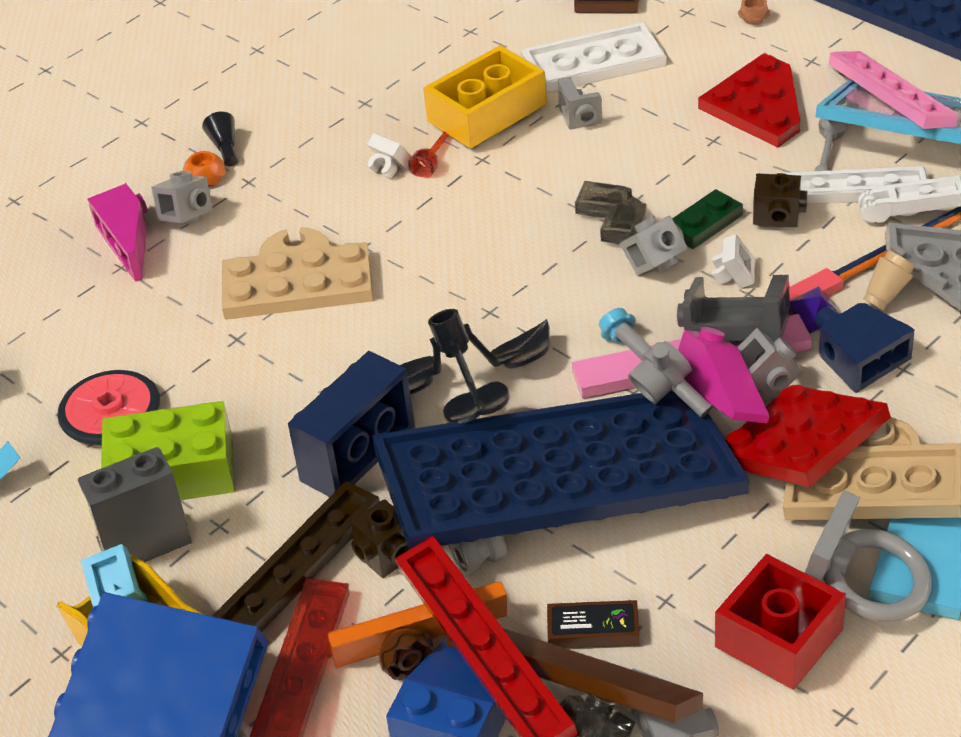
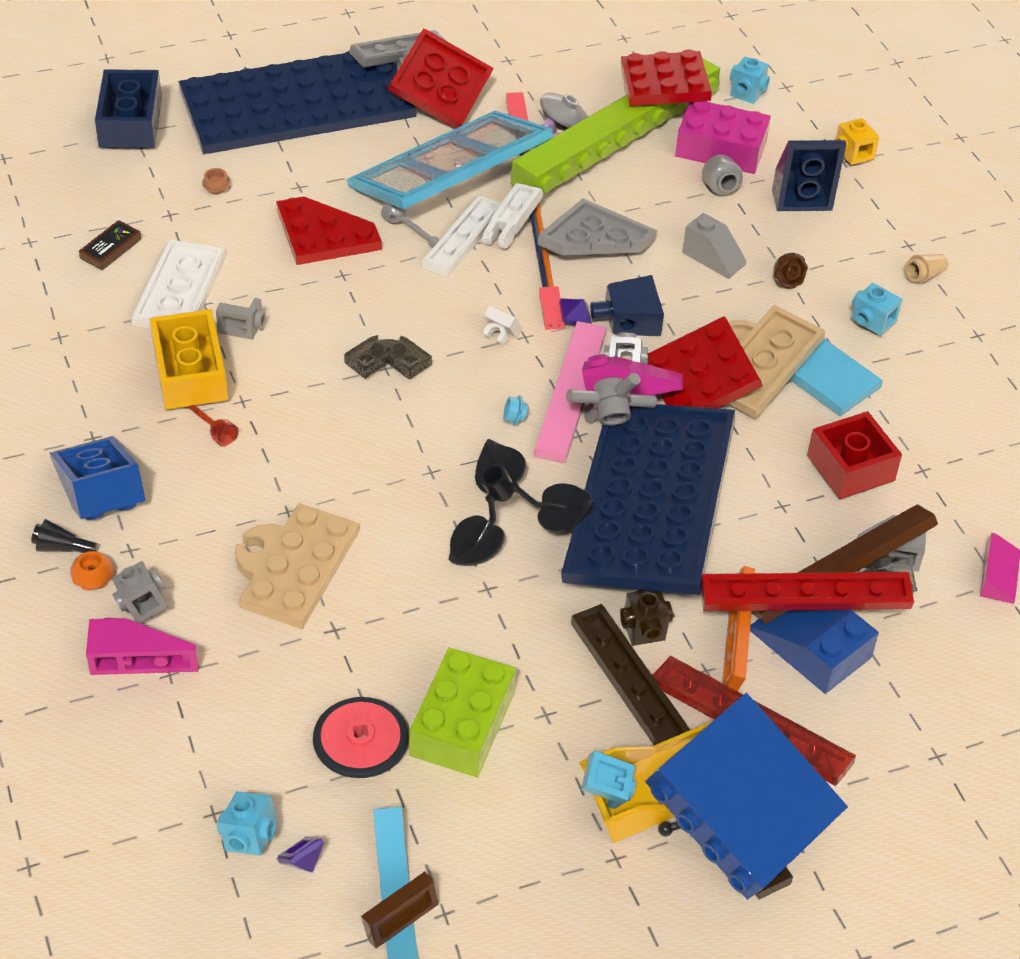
camera: 70 degrees left, 5 degrees up
(137, 506) = (536, 743): dark grey panel -> none
(304, 120) = (99, 477): none -> blue slope
(337, 428) = (528, 584): dark blue brick -> none
(387, 153) = (198, 444): white tile -> none
(404, 651) = (760, 647): reddish brown plate -> none
(593, 624) = (785, 546): tile -> none
(654, 245) = (455, 351): light grey brick -> none
(707, 217) = (432, 319): dark green plate -> none
(737, 315) = (568, 344): dark grey panel -> none
(778, 200) = (460, 272): dark brown brick -> none
(835, 552) = (820, 401): light grey tile -> none
(888, 279) = (587, 263): tan cone -> none
(893, 90) = (401, 163): bright pink tile -> none

